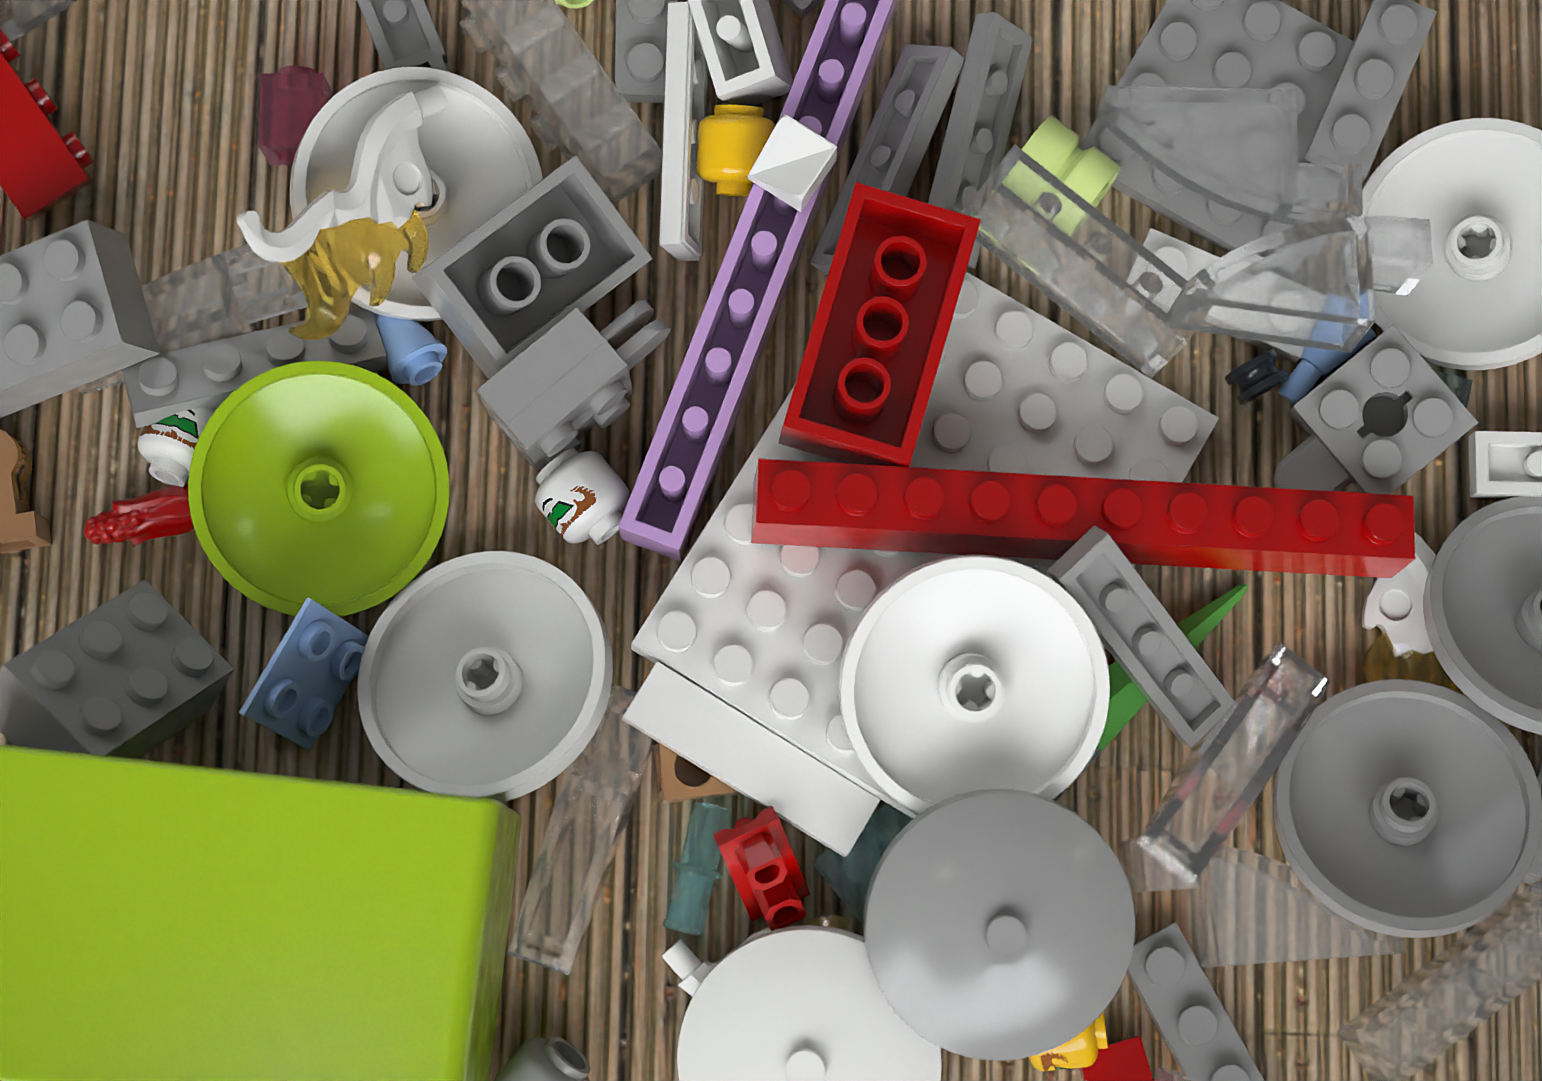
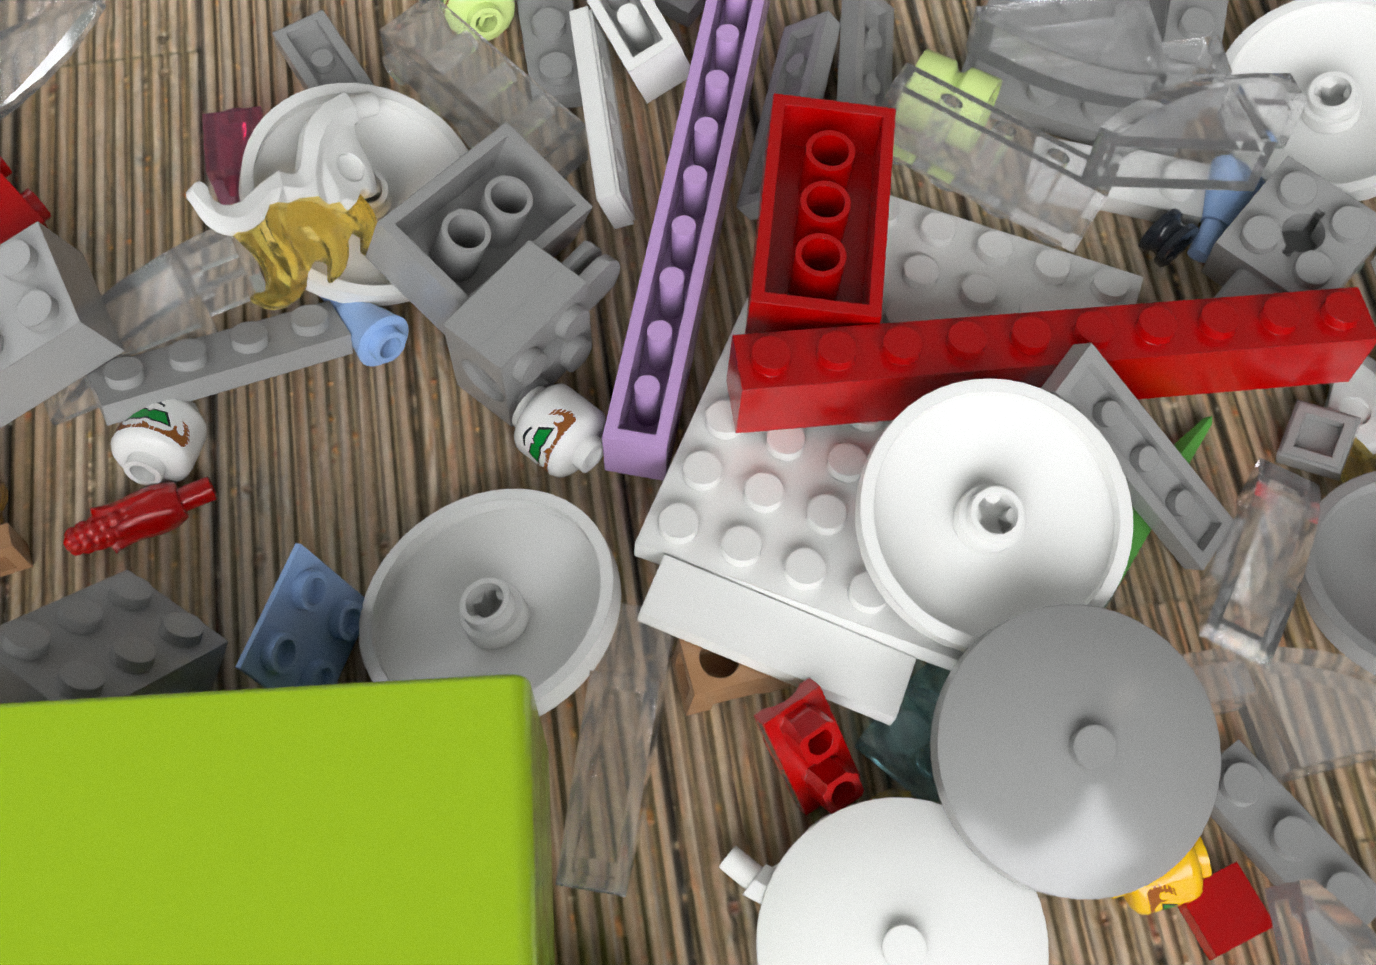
camera: 10 degrees left, 15 degrees down
(318, 488) = (294, 448): lime dish -> none
(696, 870) = (739, 771): clear light blue axle -> none
(730, 146) = (647, 120): yellow head -> none
(793, 162) = (710, 99): white slope -> none
(1346, 630) = (1318, 440): none -> light grey tile

